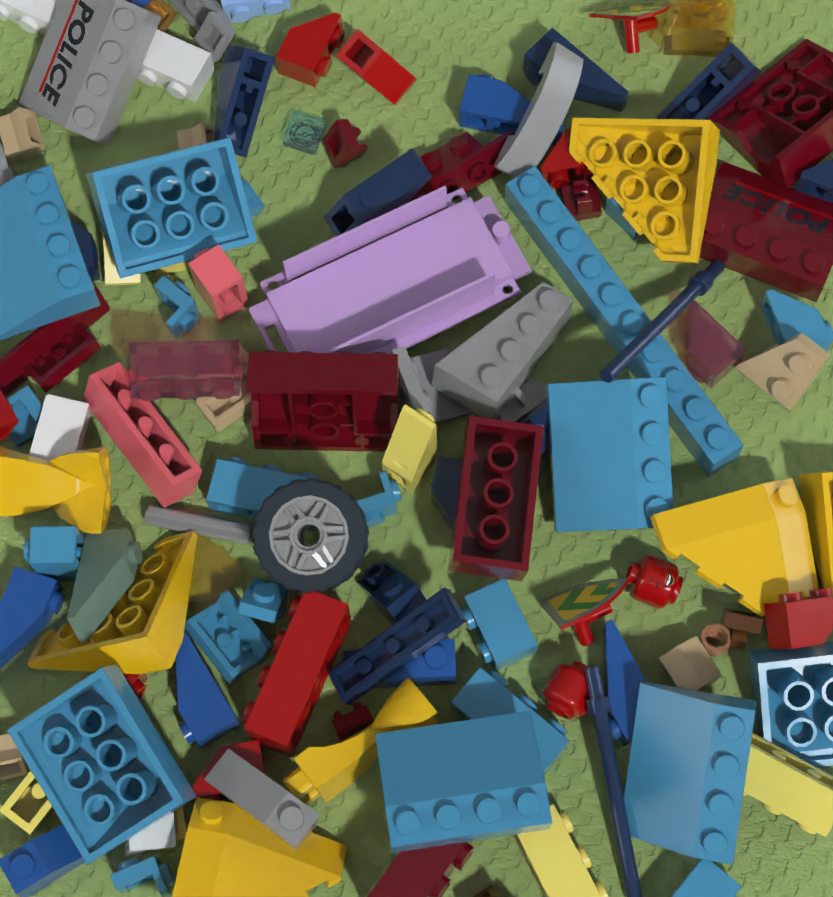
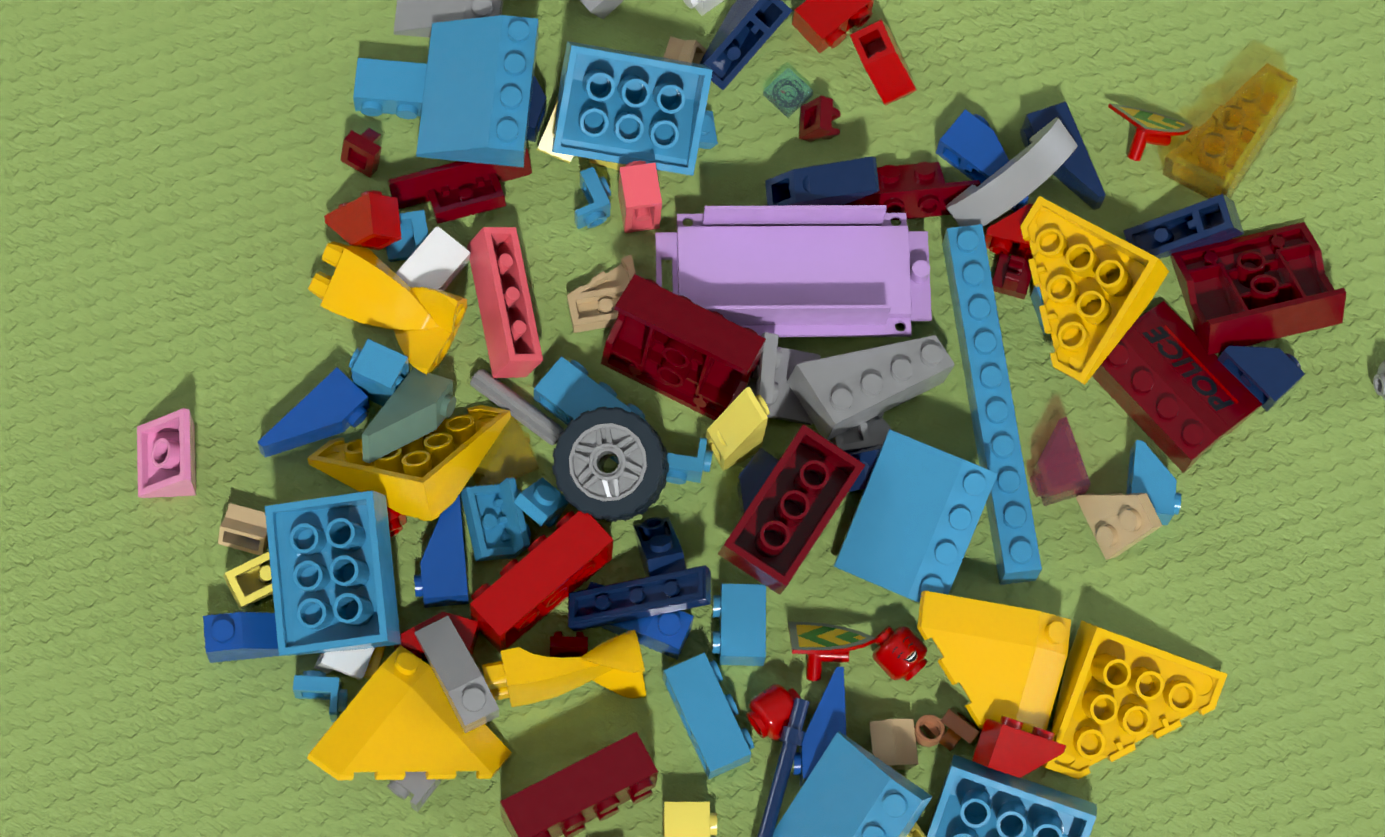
camera: 15 degrees right, 0 degrees up
(184, 369) = (570, 262): clear pink brick -> none
(462, 781) = (636, 739): dark azure slope -> none
(698, 285) = (1078, 405): dark blue bar -> none

